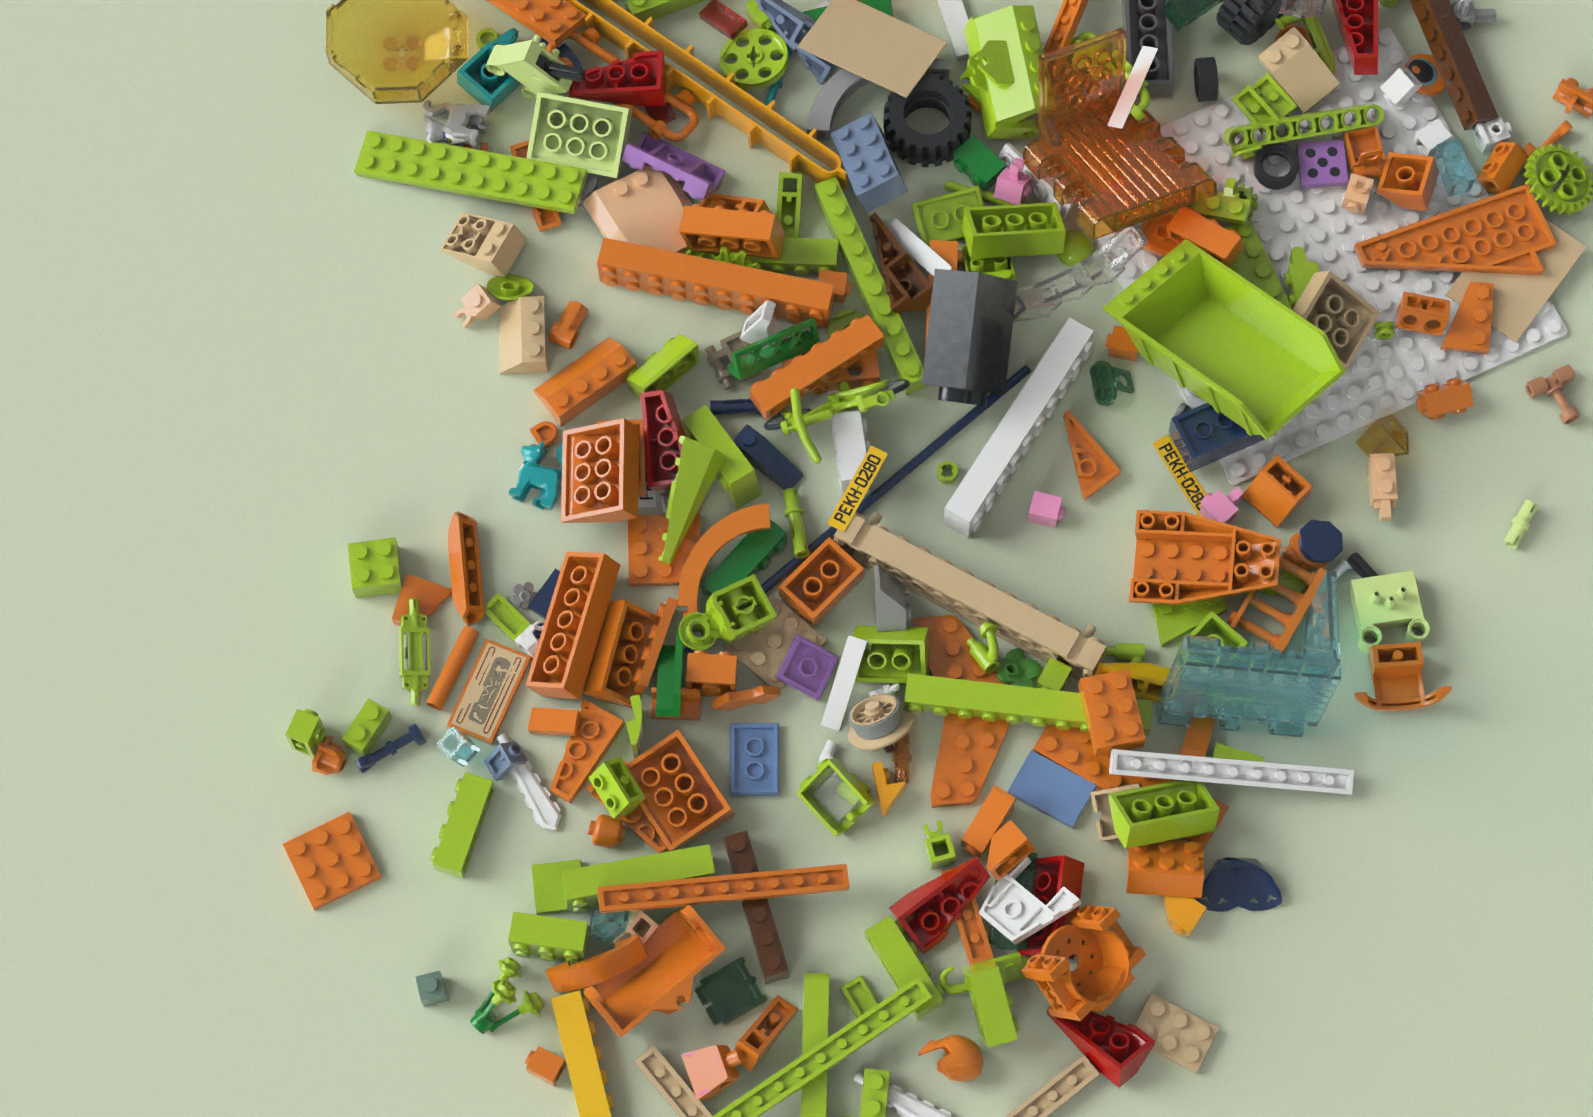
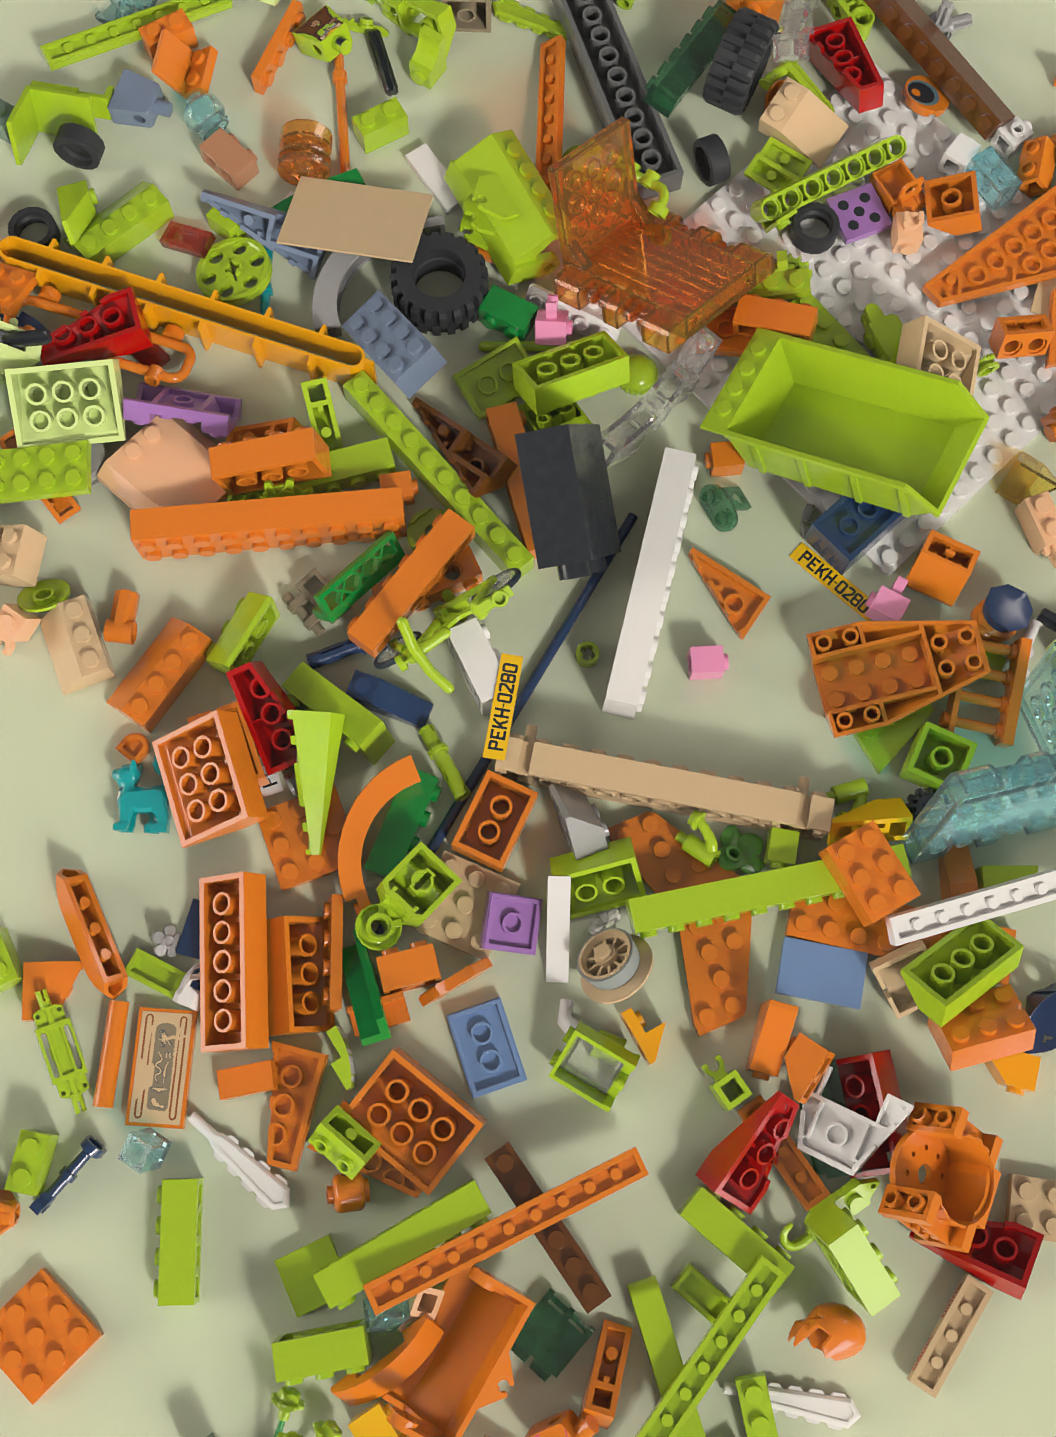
camera: 25 degrees left, 5 degrees up
(504, 759) = (204, 1144): sand blue bracket -> none
(760, 324) = (334, 554): white arch -> none
(901, 759) = (651, 1000): clear orange pin -> none
(917, 248) = (478, 423): white sticker -> none
(1132, 87) = (646, 184): white sticker -> none
(1400, 86) = (909, 112): white brick -> none

